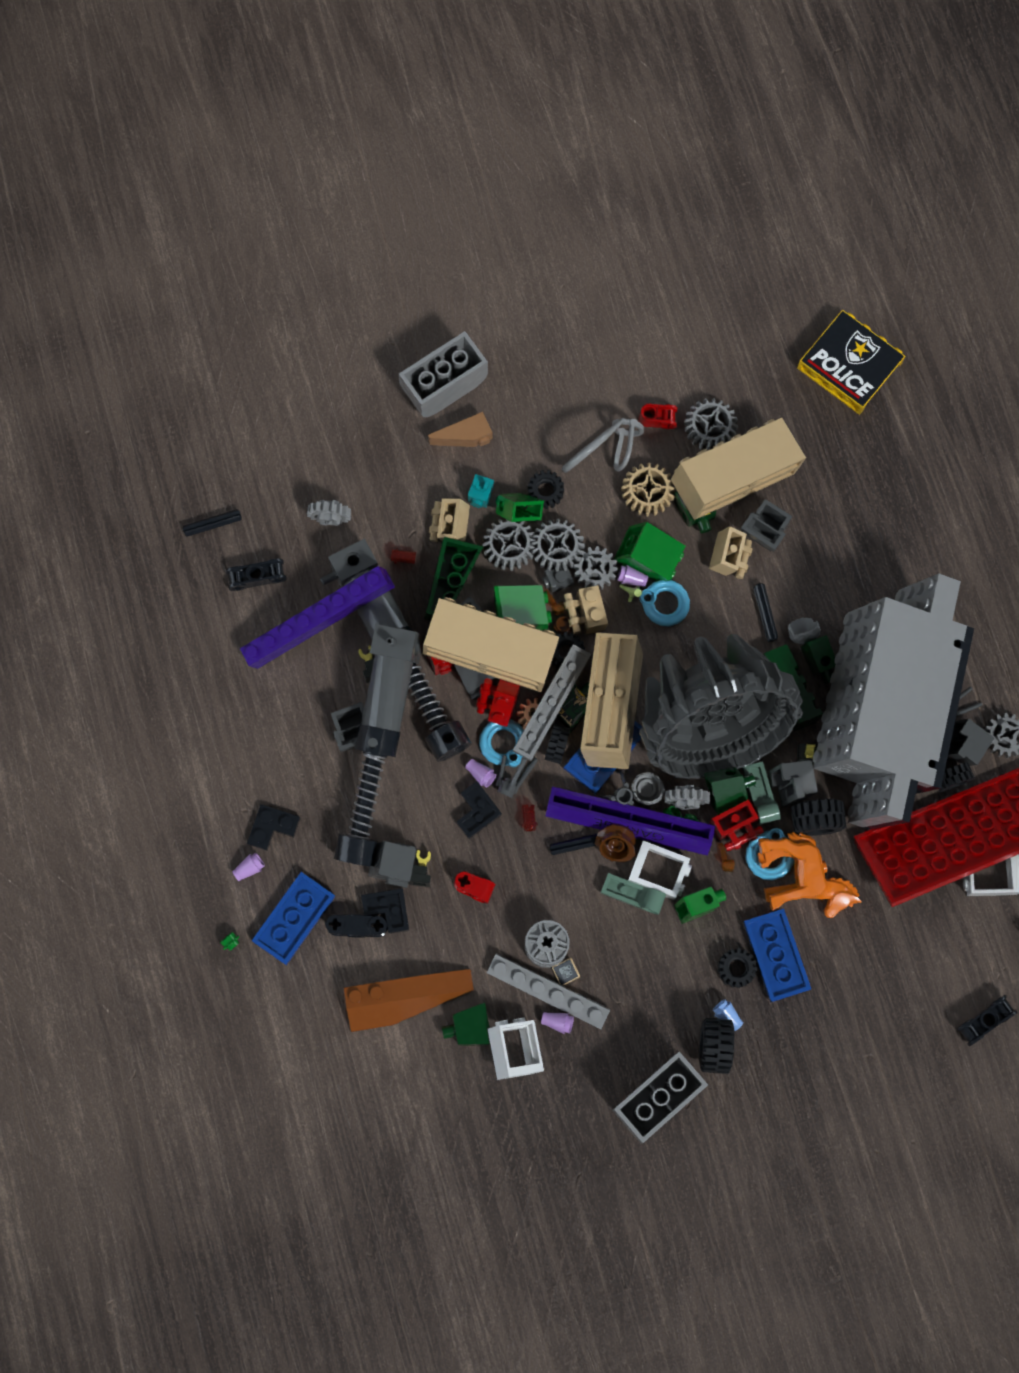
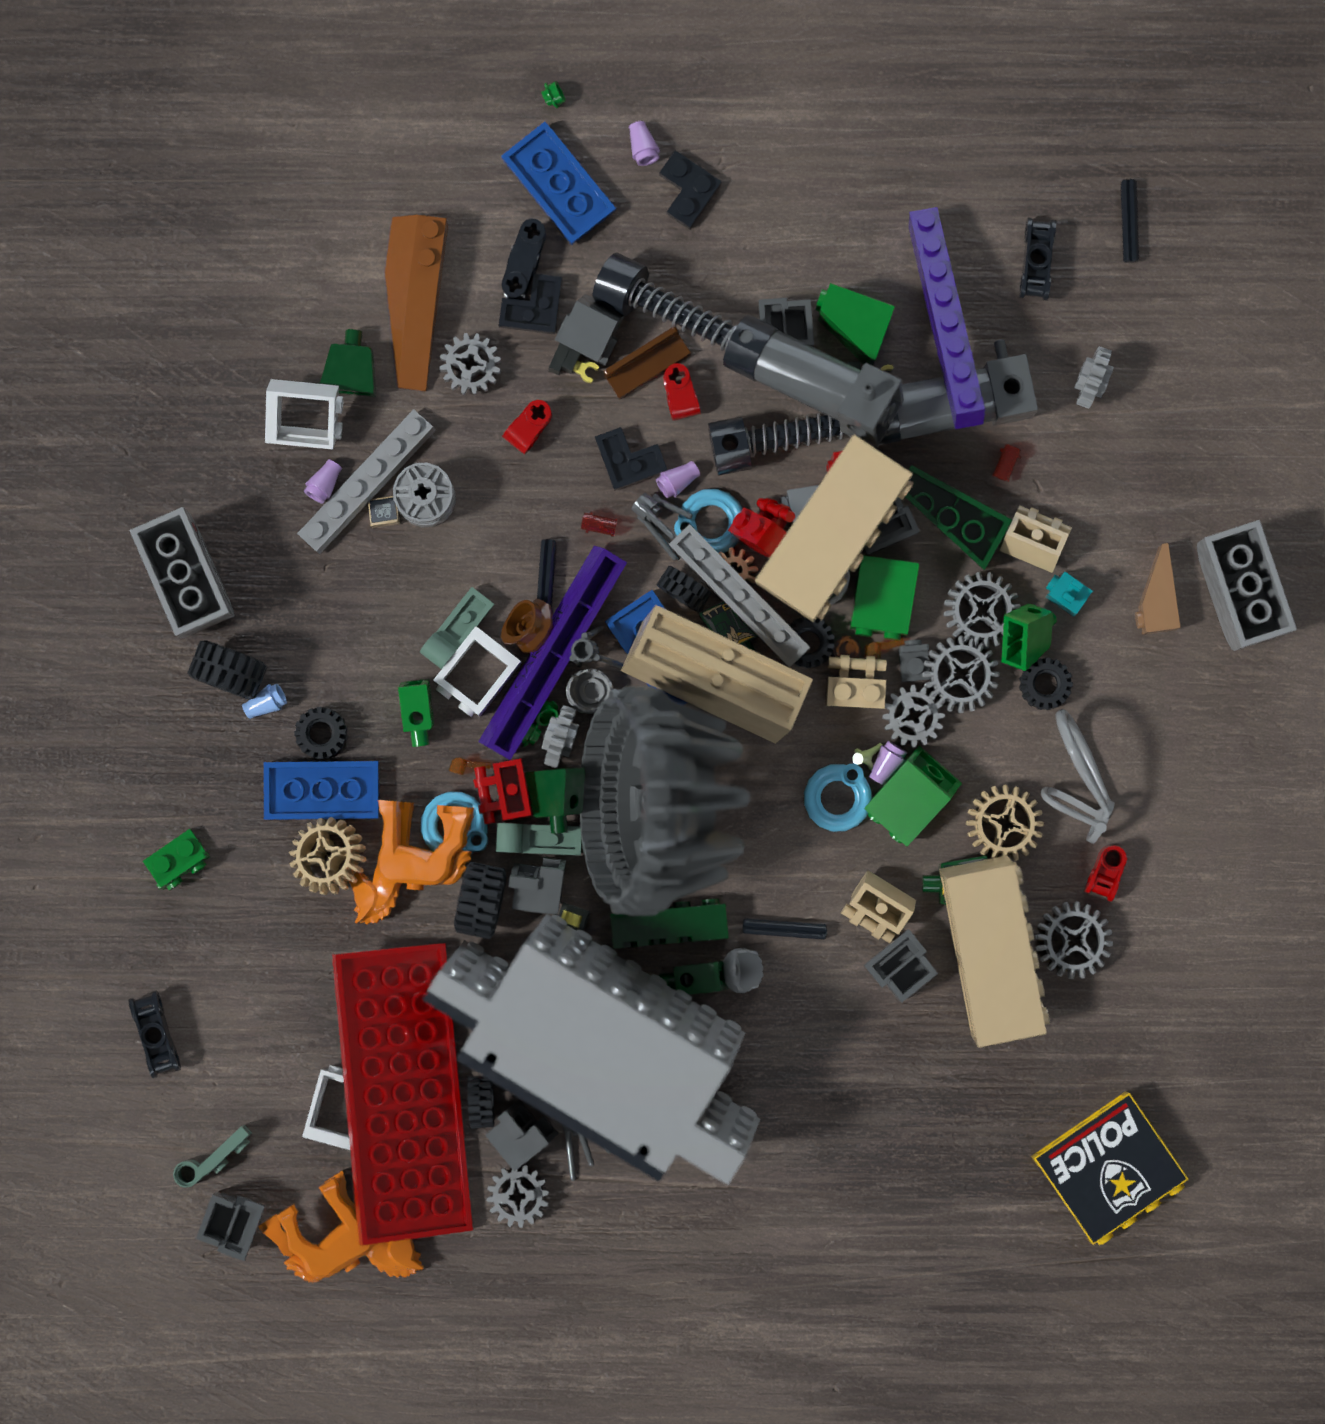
camera: 110 degrees right, 10 degrees up
(336, 680) = (854, 320): none -> green slope
(405, 818) = (646, 362): none -> reddish brown panel
(421, 787) = (680, 397): none -> red piece
(432, 941) = (483, 367): none -> light grey gear
(831, 951) = (334, 877): none -> tan gear
(860, 1043) = (176, 860): none -> green bracket

